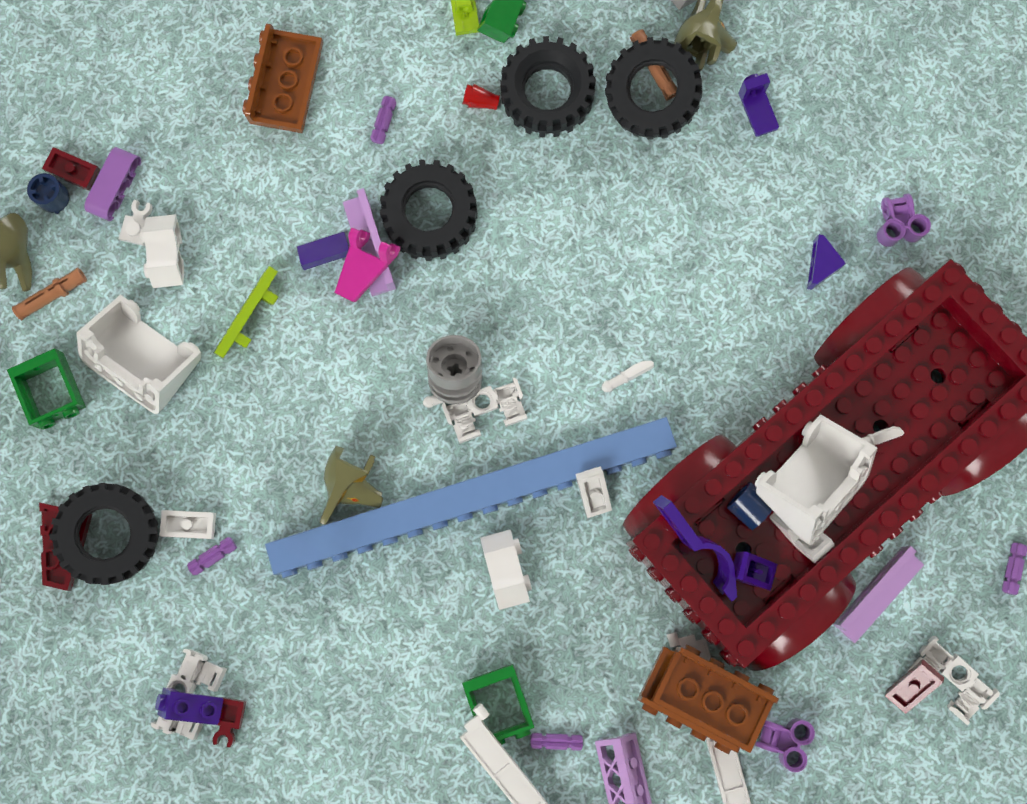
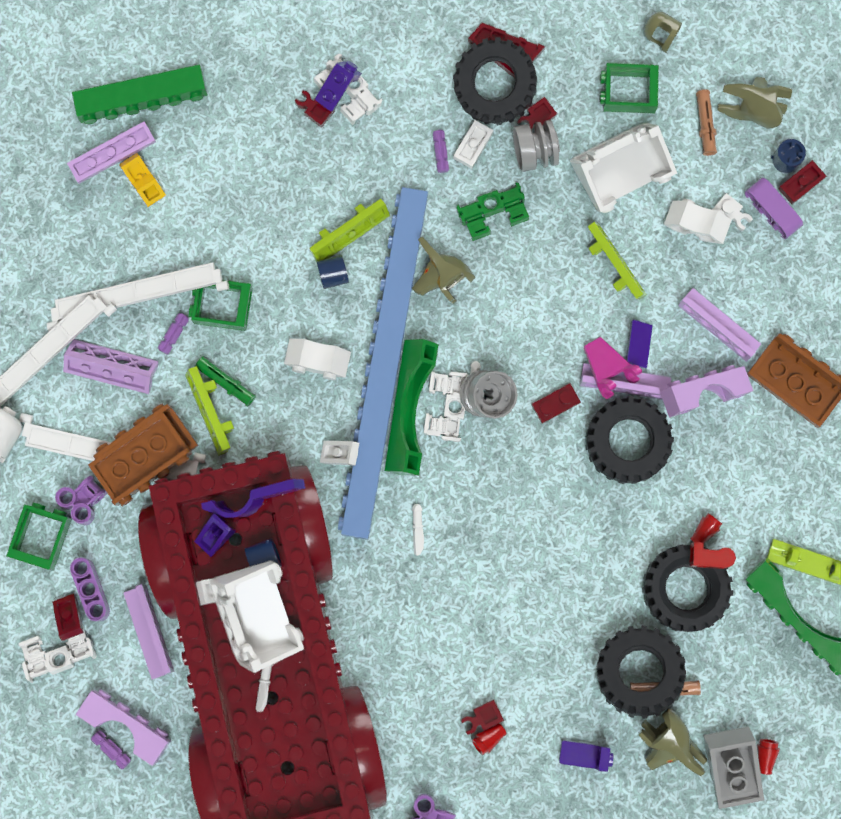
camera: 110 degrees right, 0 degrees up
(121, 470) = (538, 112): none -> dark red plate
(158, 454) = (536, 145): none -> light grey wheel
(263, 180) = (719, 324): none -> lavender fence
(263, 487) = (507, 199): none -> green piece
(349, 607) = (350, 231): none -> lime hinge
(358, 171) = (684, 397): none -> lavender arch
(383, 120) = (725, 443): medium lavender axle -> none
(403, 601) = (332, 272): none -> dark blue piece
(426, 302) = (555, 403): none -> dark red plate
(507, 65) = (707, 558): none -> red leg
(556, 428) = (403, 448): none -> green arch
(579, 654) = (232, 386): none -> green pin
(607, 674) = (215, 428): none -> lime hinge
(773, 217) = (486, 716): none -> dark red plate
(794, 204) = (488, 739): none -> red cone
(824, 262) = (426, 735): dark purple slope -> none
(876, 762) = (20, 531): none -> green window
(884, 675) = (81, 583): none -> medium lavender beam
(983, 598) = (148, 743): none -> lavender arch

